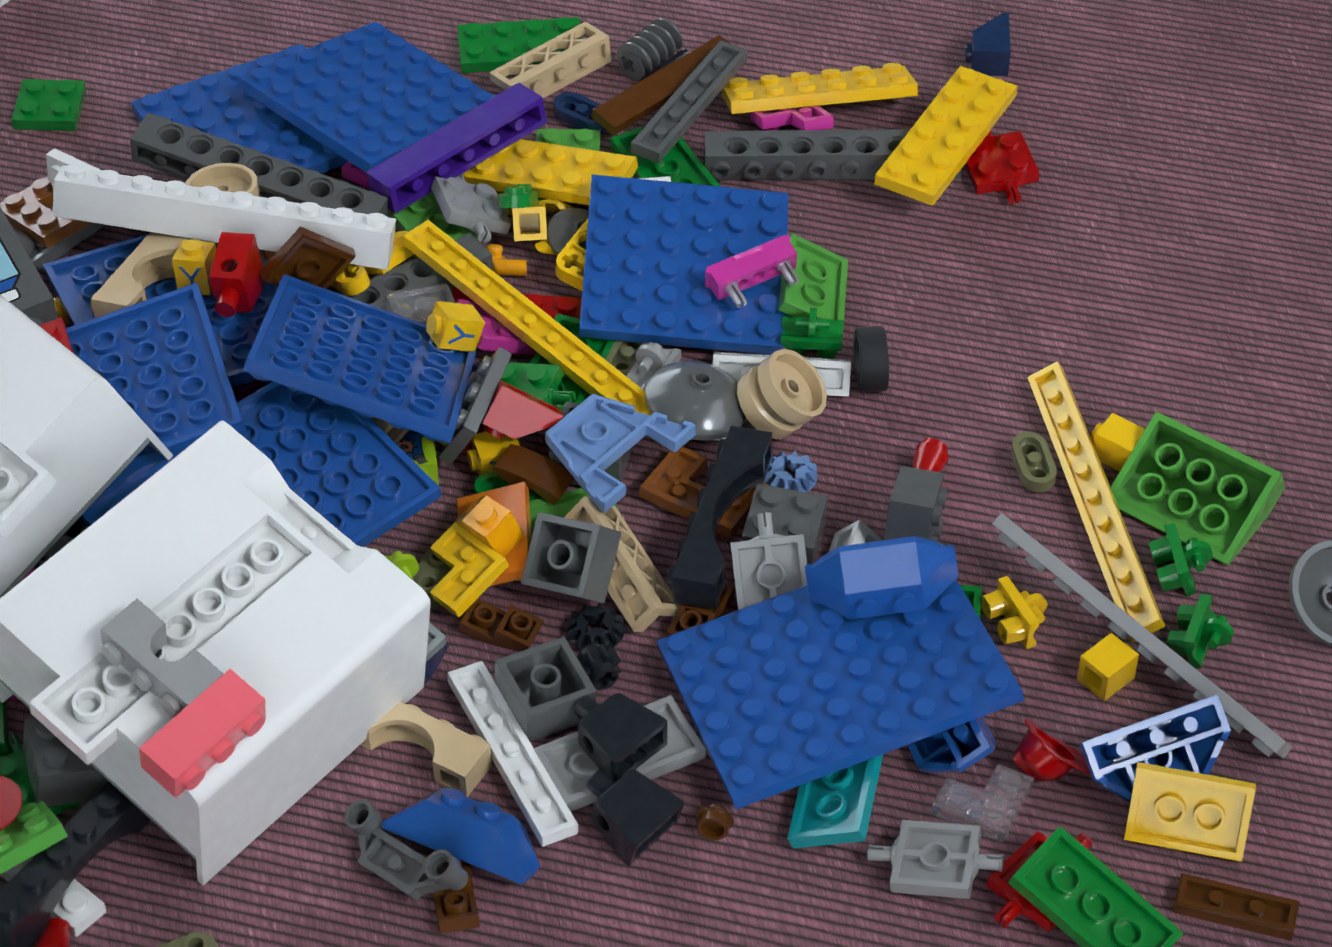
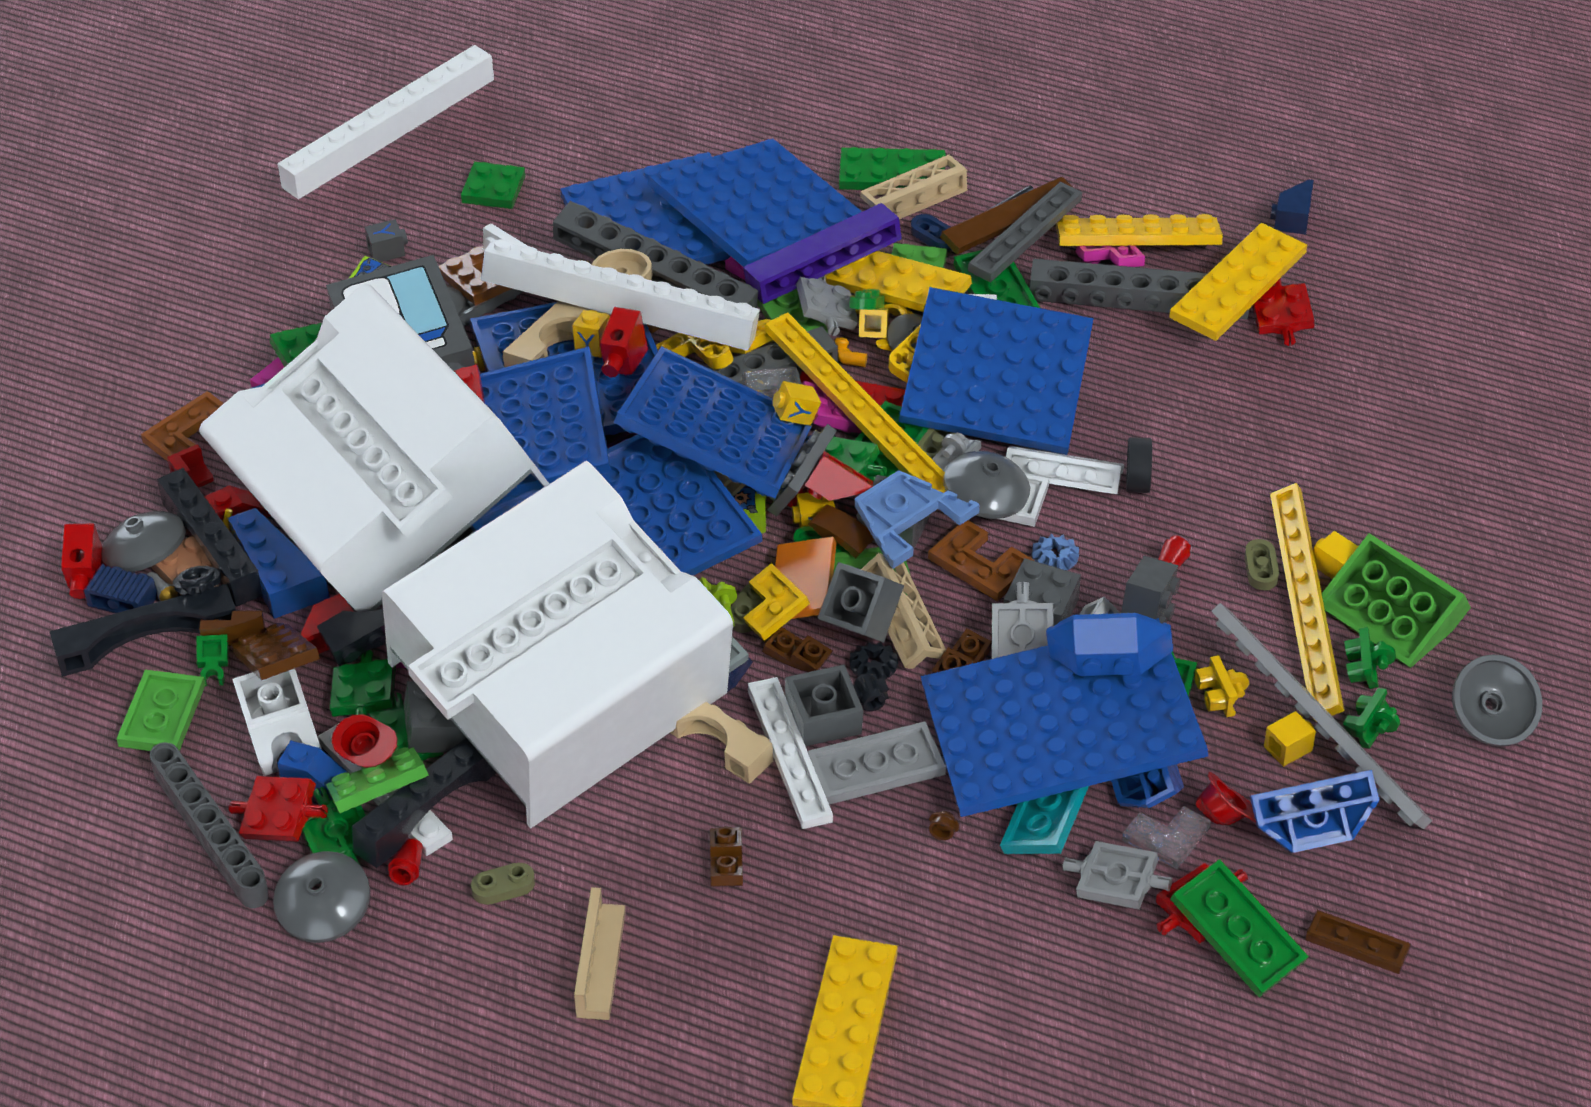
camera: 10 degrees right, 0 degrees up
(133, 641) = (528, 665): light grey arch -> none
(203, 734) = (539, 704): coral brick -> none
(309, 259) = (684, 336): reddish brown plate -> none
(399, 863) = (684, 826): dark grey plate -> none
(470, 832) = (745, 810): blue wedge -> none
(492, 525) = (801, 569): light orange slope -> none
(619, 733) = (877, 747): black torso -> none
(632, 812) = (878, 809): black torso -> none
(649, 48) = (999, 182): dark grey piece -> none
(700, 567) = (1013, 540): black arch -> none
(751, 268) = (1050, 379): dark pink piece -> none
(781, 393) = (1057, 486): tan wheel -> none
(812, 333) = (1094, 439): green hips -> none
(820, 284) = (1102, 398): bright green plate -> none
(1190, 811) = (1331, 861): yellow plate -> none

